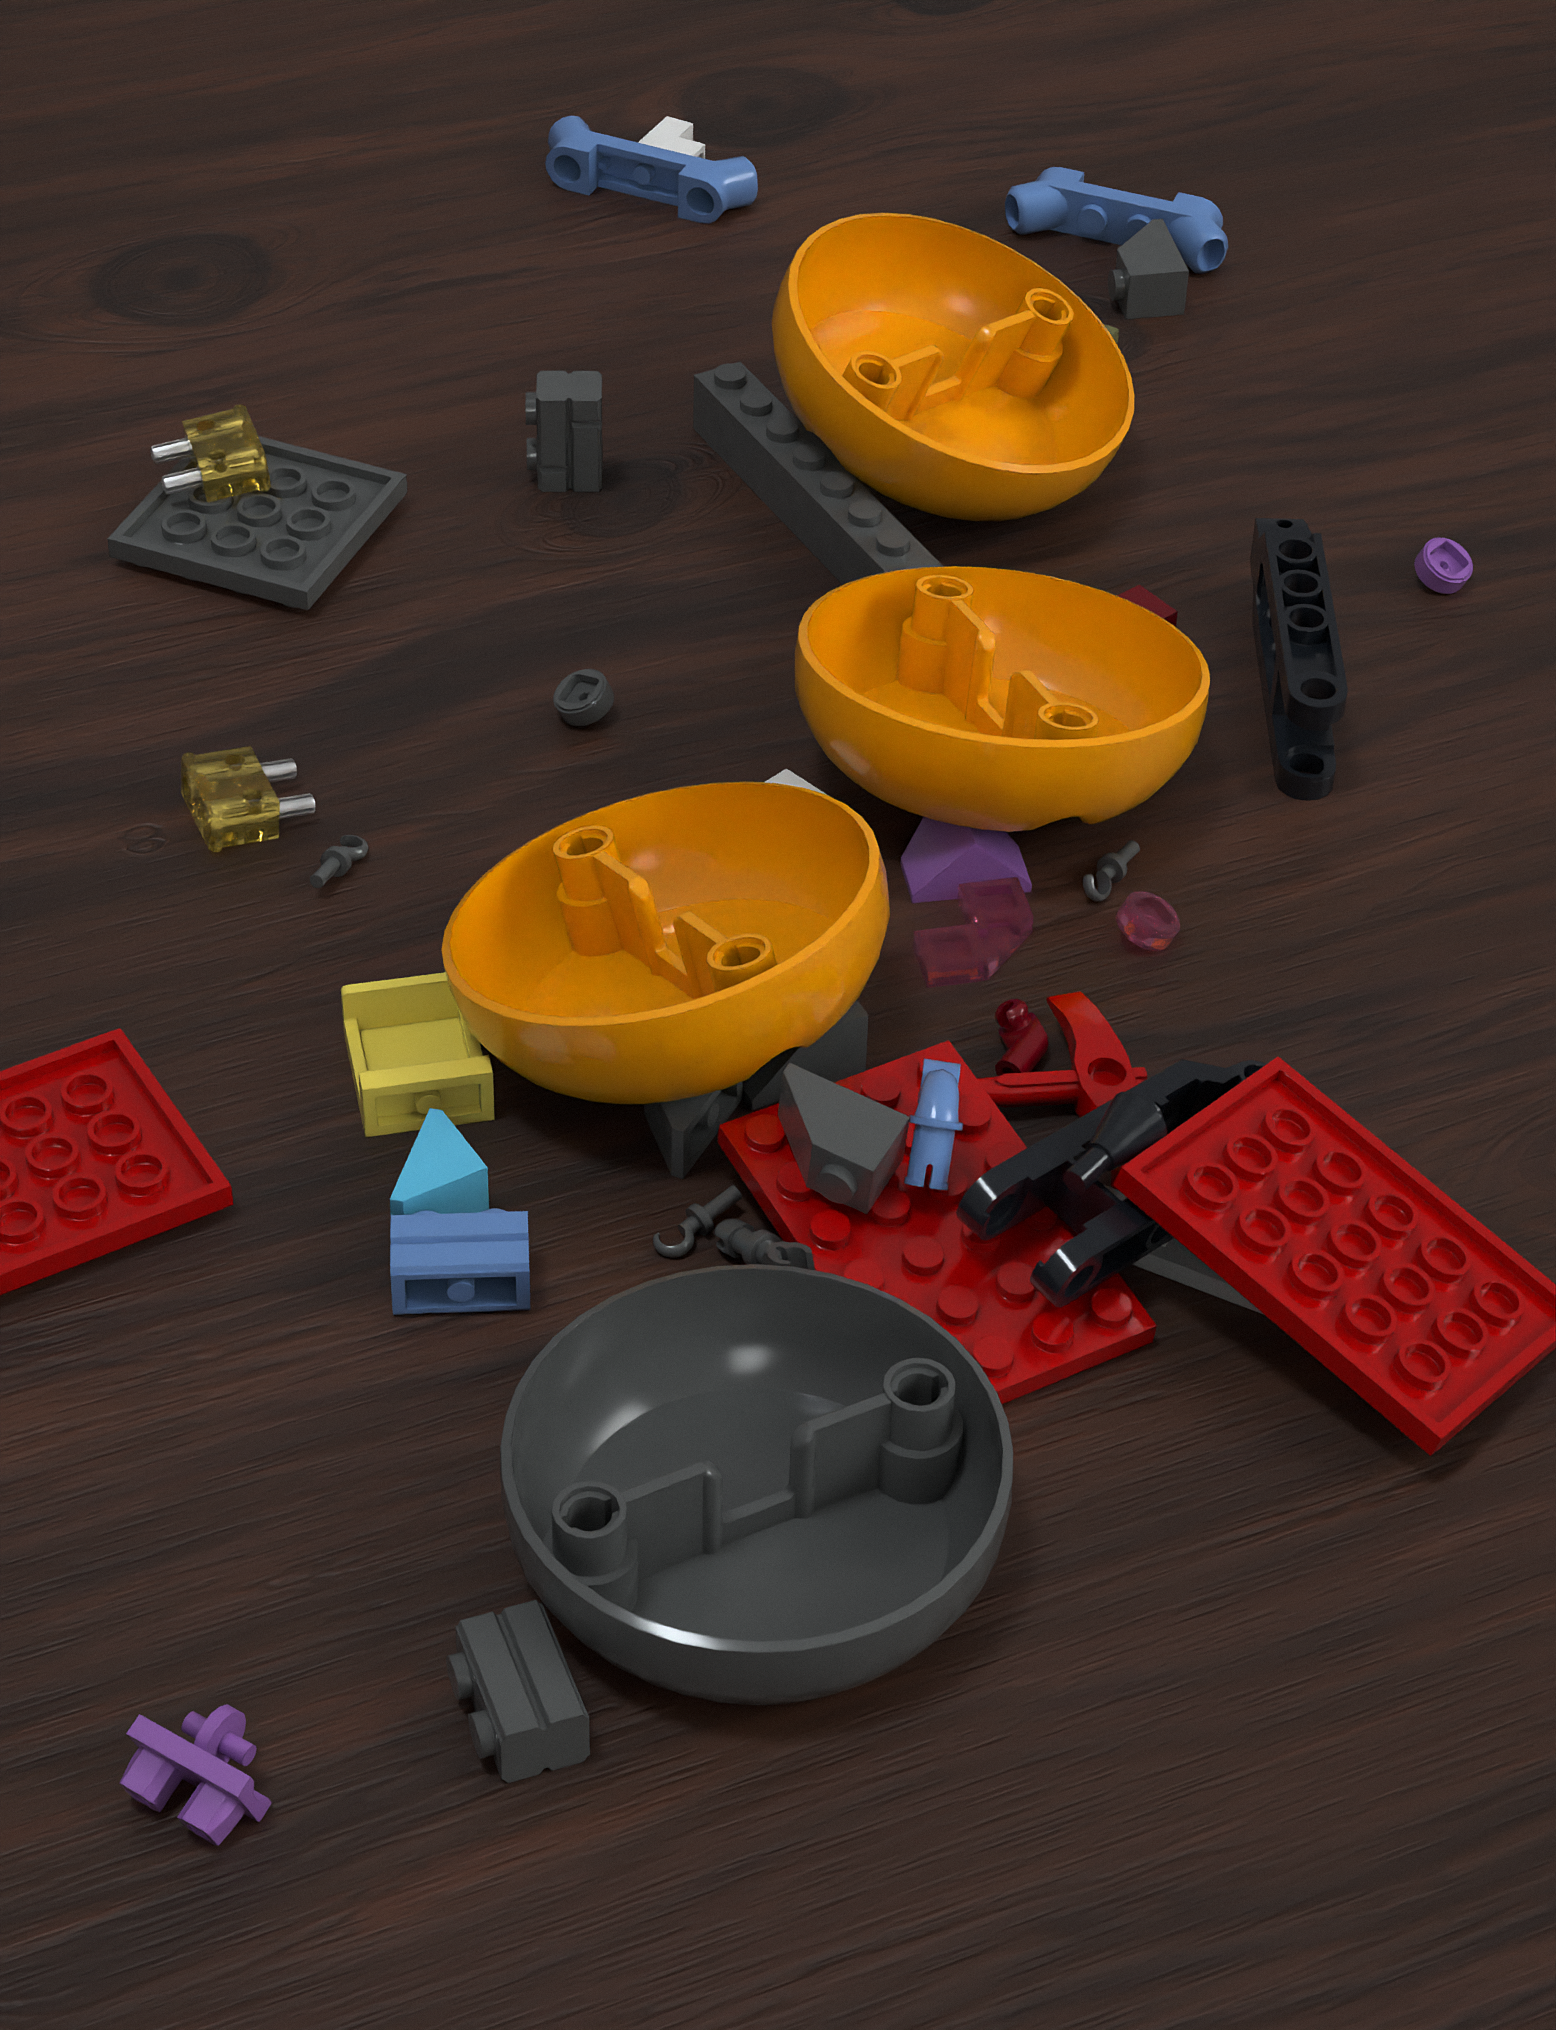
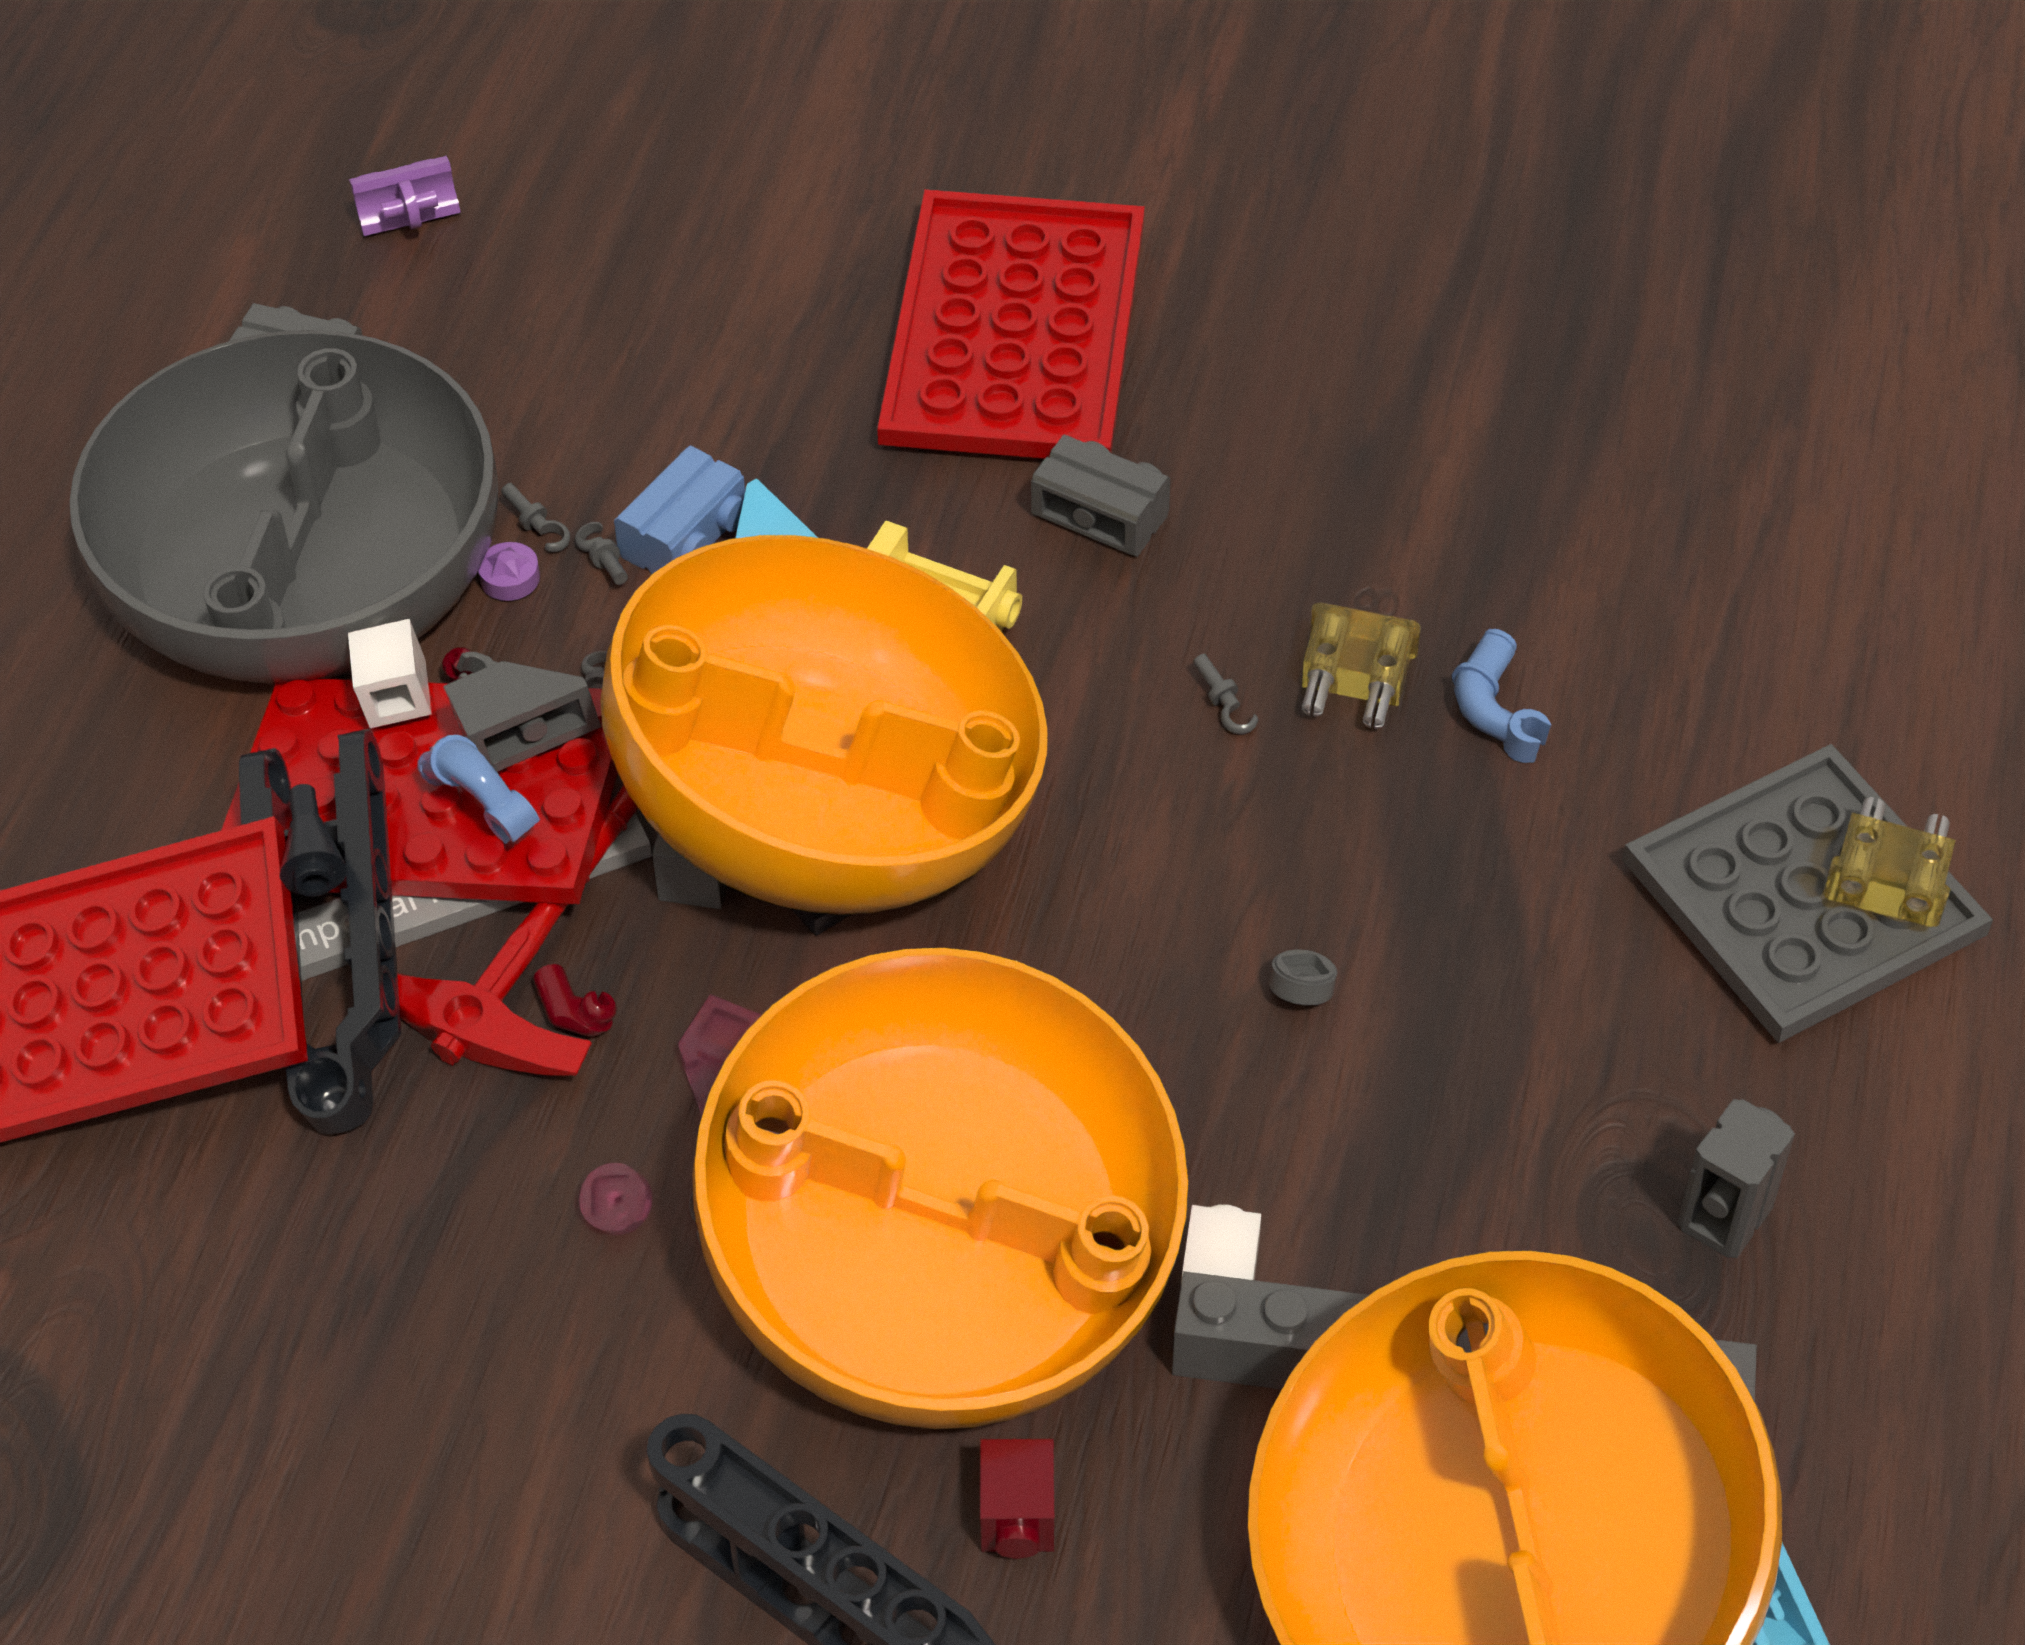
camera: 130 degrees right, 10 degrees up
(180, 1012) = (1100, 494): none -> dark grey brick
(203, 728) = (1476, 691): none -> medium blue piece
(546, 1308) = (602, 552): none -> dark grey hand
(879, 1253) = (389, 673): none -> white brick

